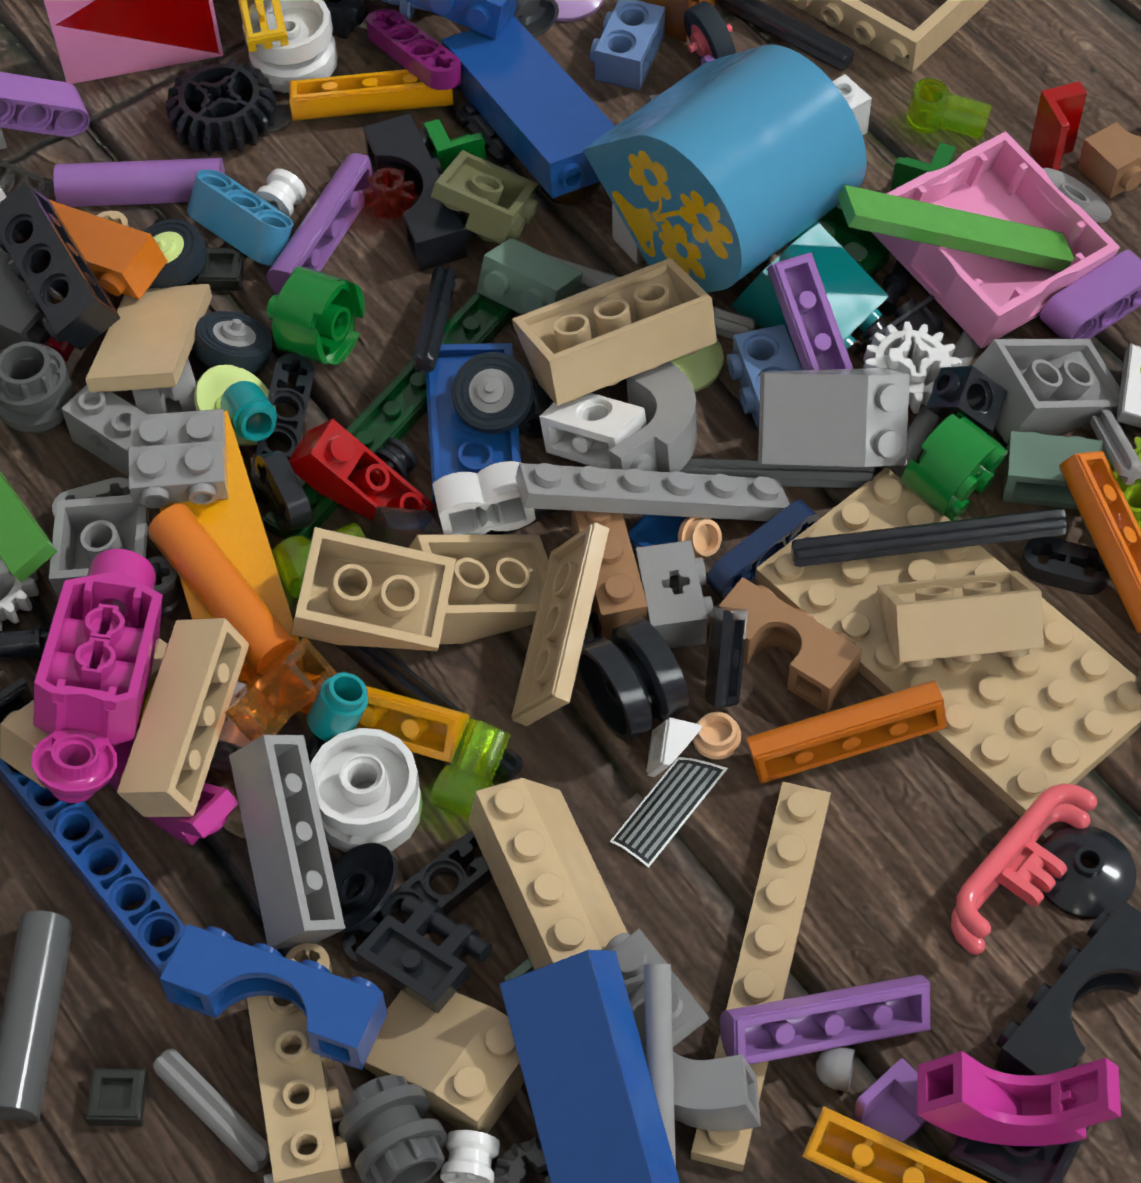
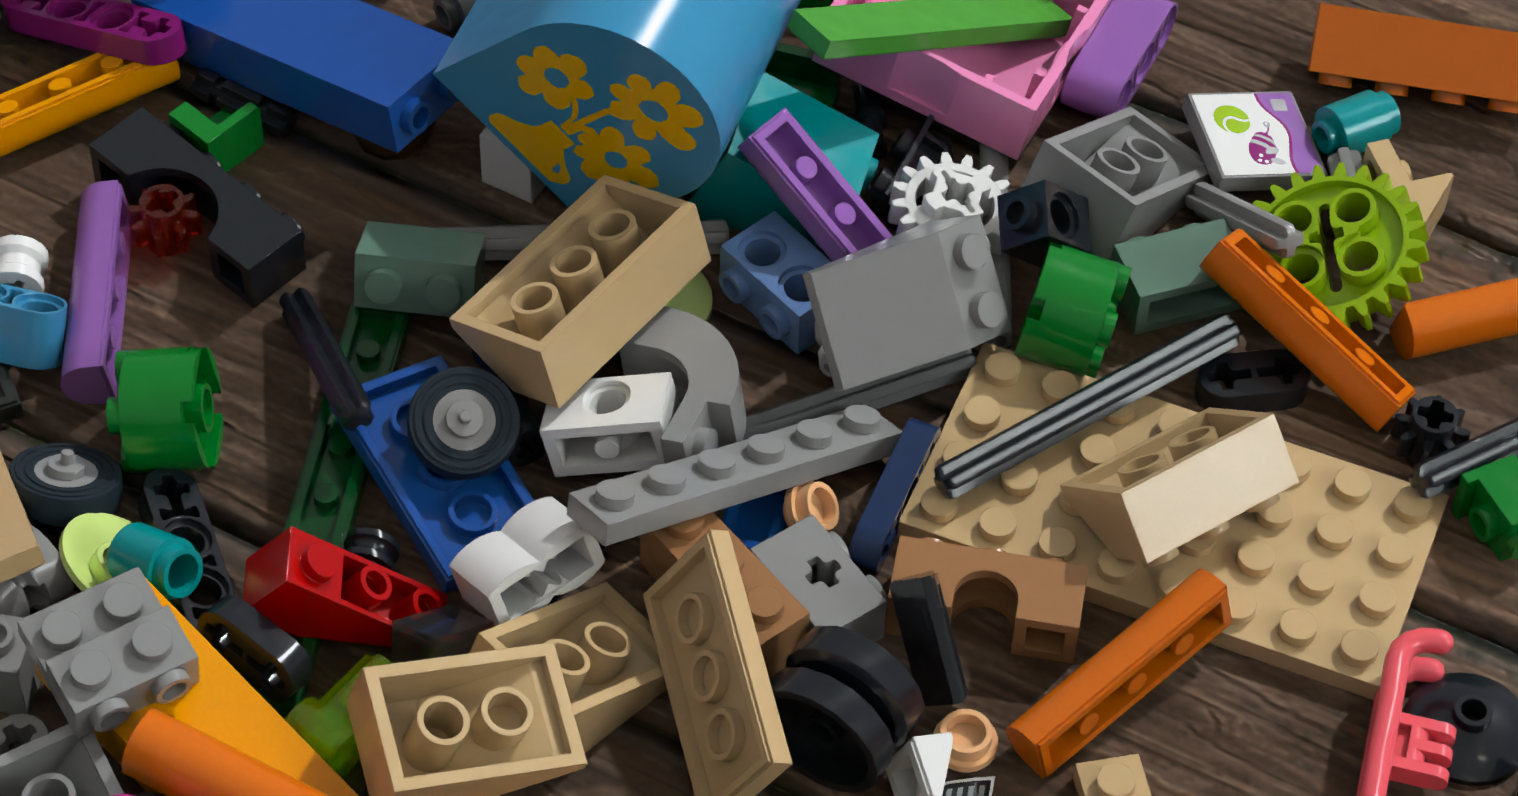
camera: 30 degrees left, 5 degrees down
(493, 197) = (311, 174): olive plate -> none

